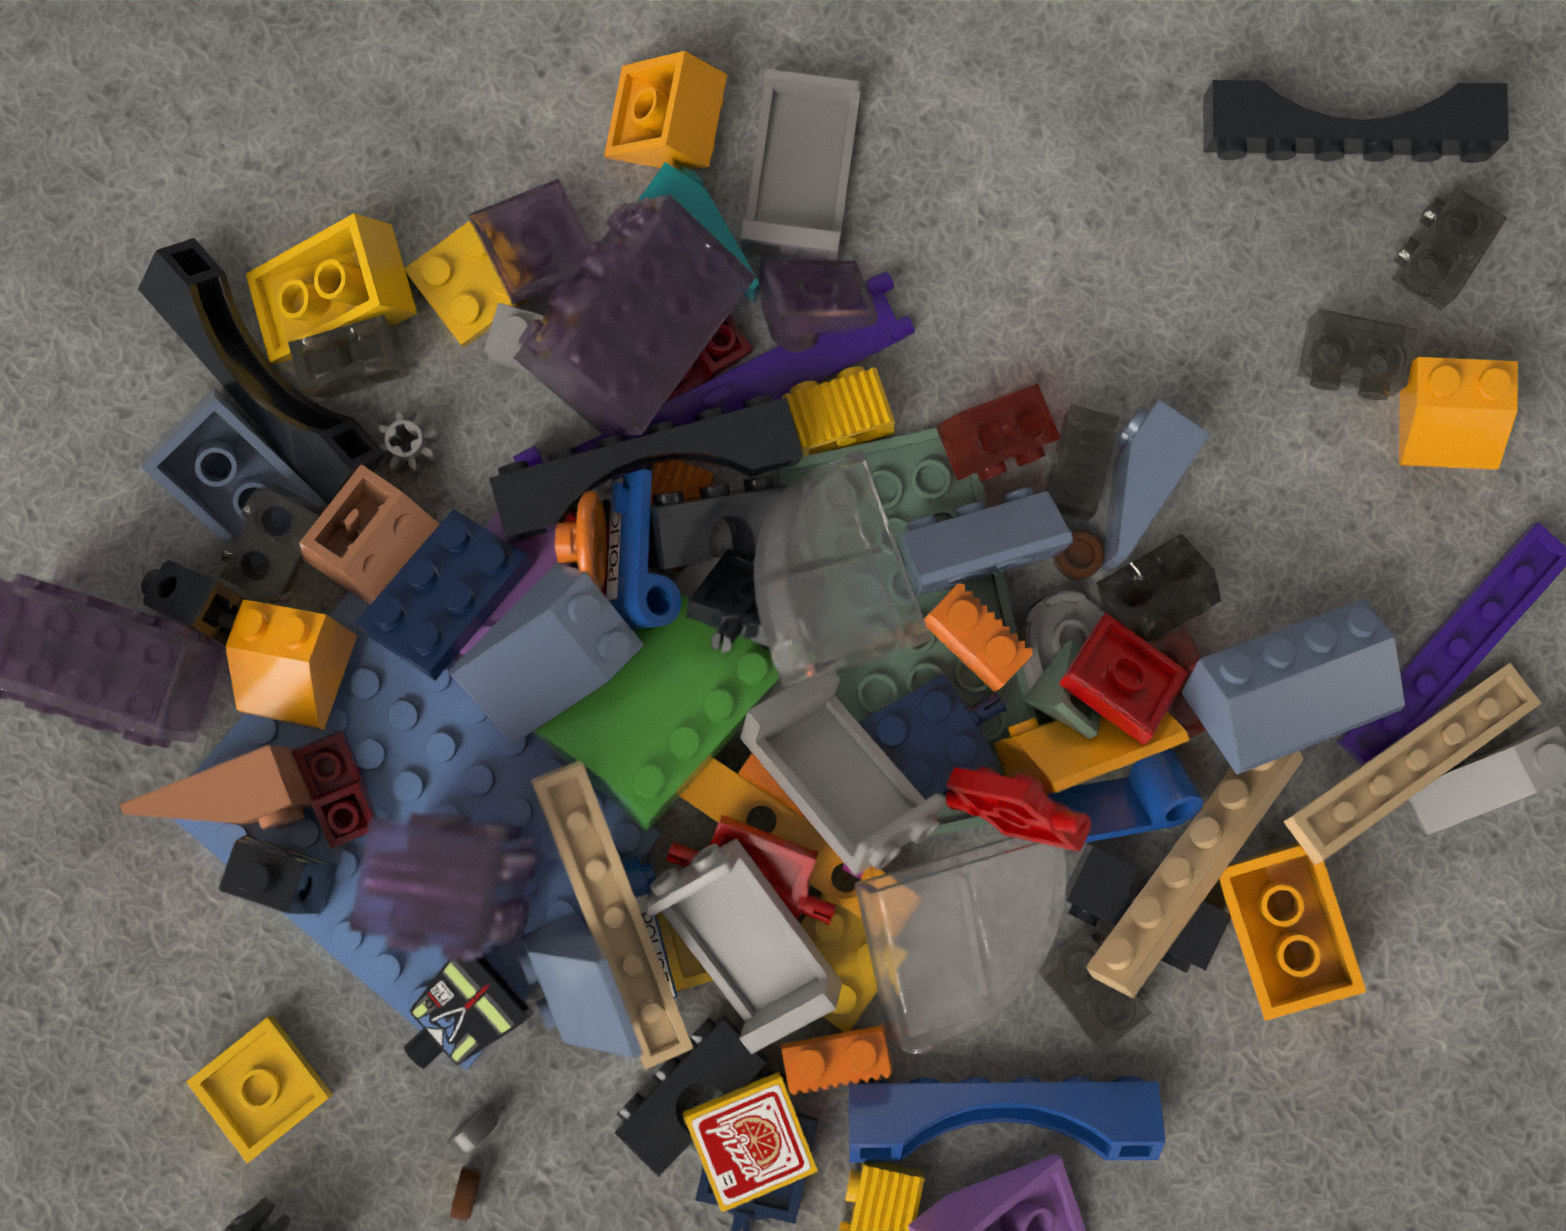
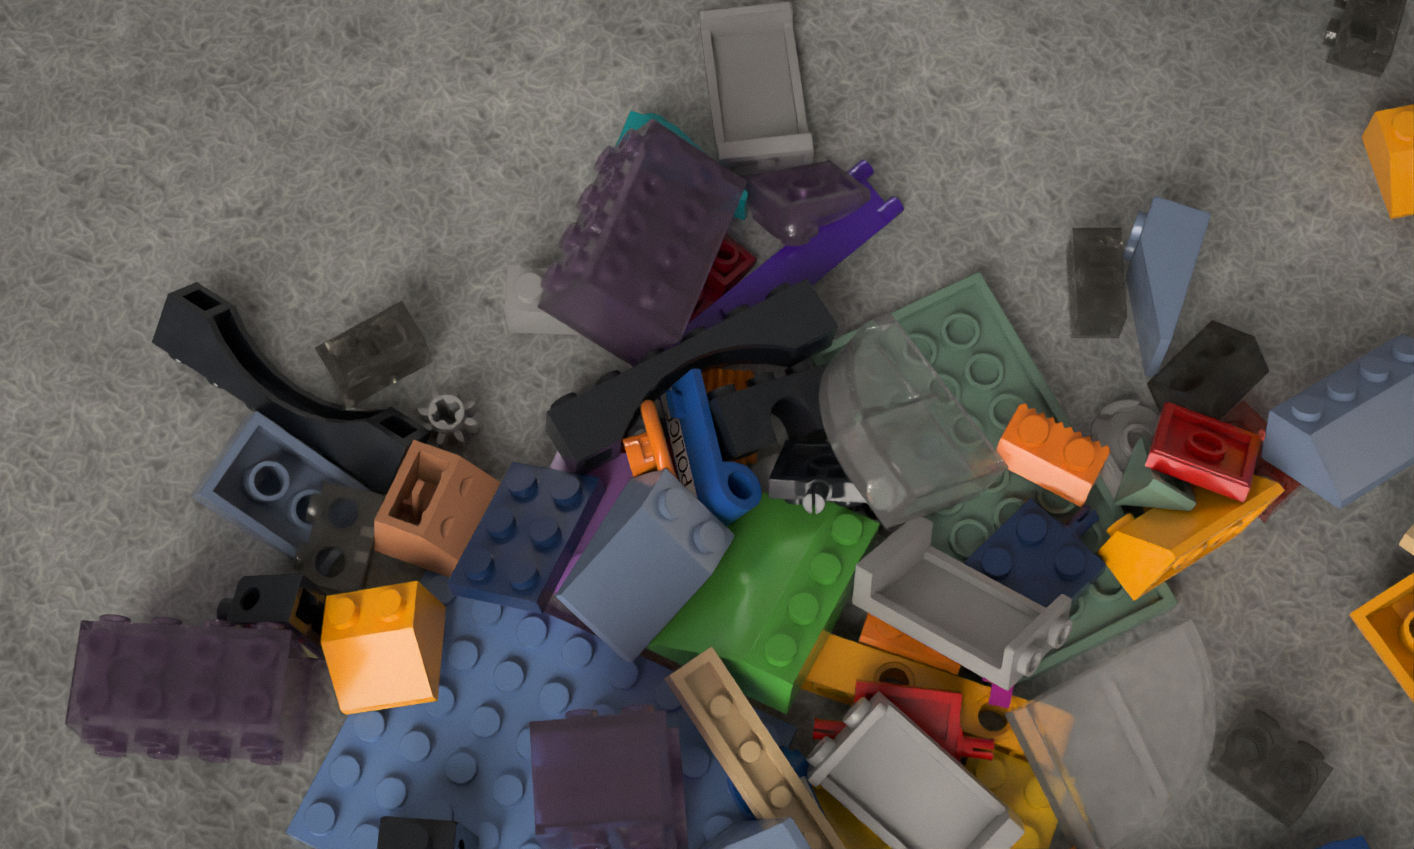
camera: 15 degrees left, 15 degrees down
(250, 789) = (363, 780): nougat slope -> none
(329, 283) = (332, 291): yellow slope -> none
(336, 787) = (462, 759): dark red slope -> none
(460, 284) = (469, 262): yellow plate -> none
(532, 240) = (524, 206): slope -> none
(666, 112) = (616, 70): light orange slope -> none
(840, 411) = (862, 288): yellow brick -> none
(983, 541) = (1032, 366): sand blue slope -> none
(997, 430) = (1012, 272): clear red brick -> none
(1016, 807) = (1142, 593): red plate -> none
(1081, 557) = (1120, 368): reddish brown tile -> none
(1102, 891) = (1248, 674): black arch -> none
(1151, 798) = (1264, 566): blue door -> none
(1188, 874) = (1325, 619): tan plate -> none
(1355, 341) = (1314, 118): clear smoke brick -> none

